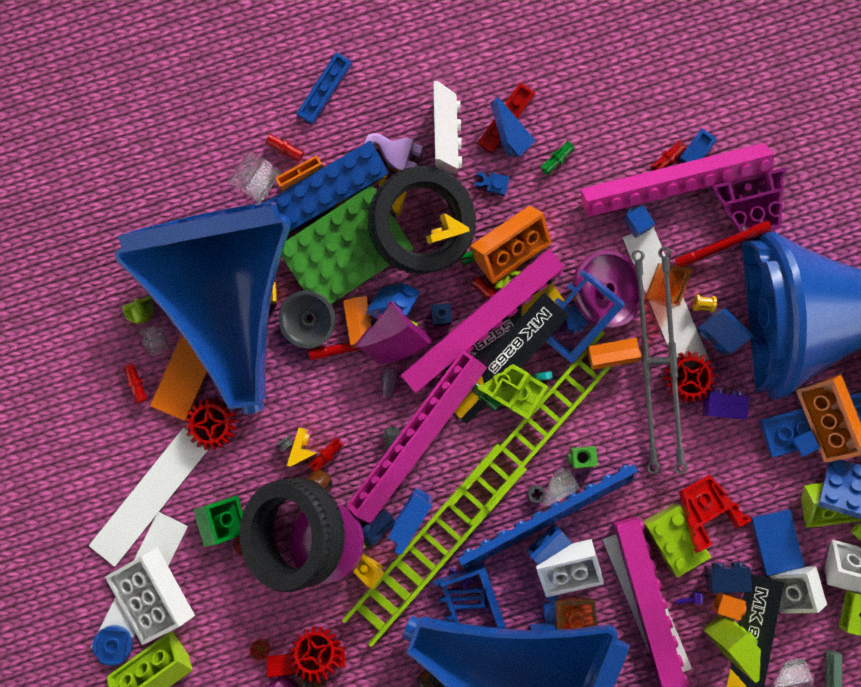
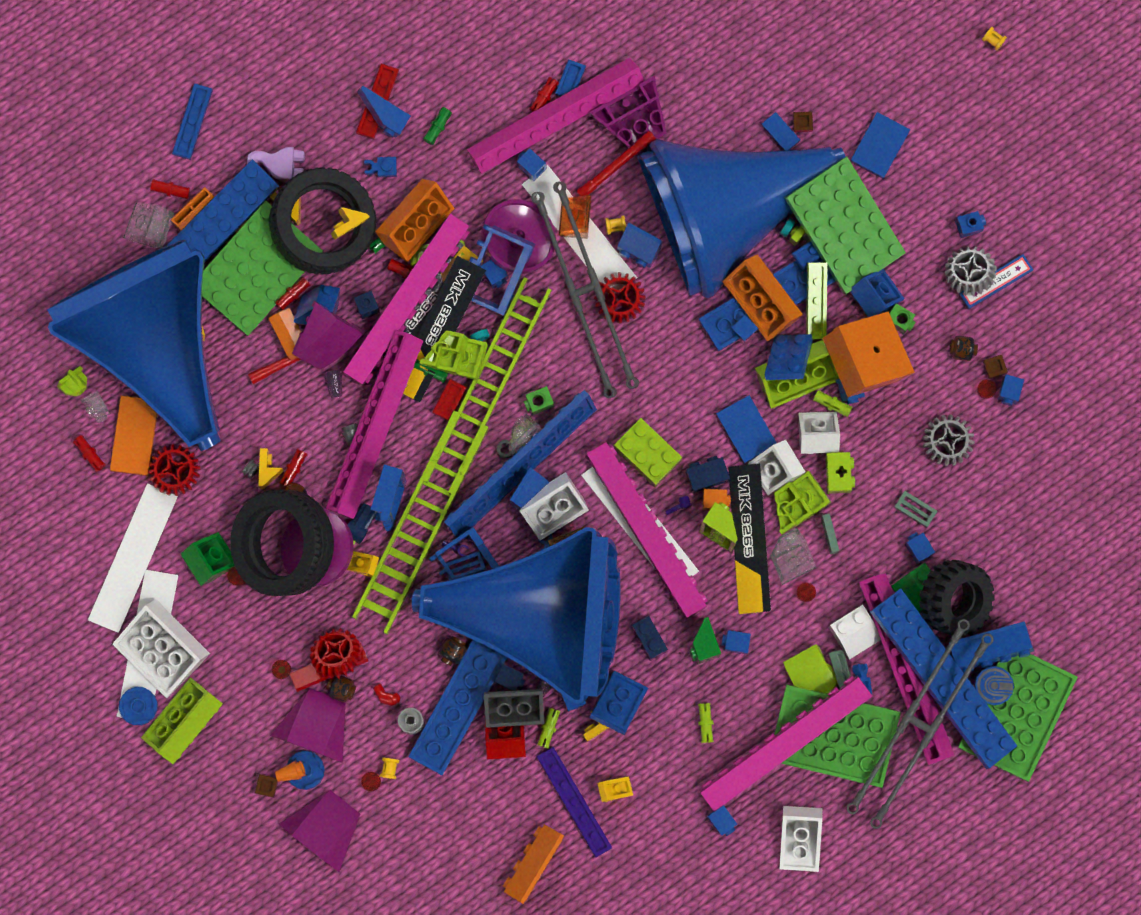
camera: 20 degrees left, 5 degrees down
(295, 321) = (227, 350): dark grey dish -> none
(373, 282) = (292, 293): none -> red pin
(446, 129) = (322, 129): white slope -> none
(495, 430) = (449, 399): none -> red plate
(614, 353) = (539, 294): orange piece -> none
(704, 502) = (664, 409): red wing -> none
(726, 405) = (661, 314): dark purple brick -> none
(810, 632) = (799, 501): none -> lime slope

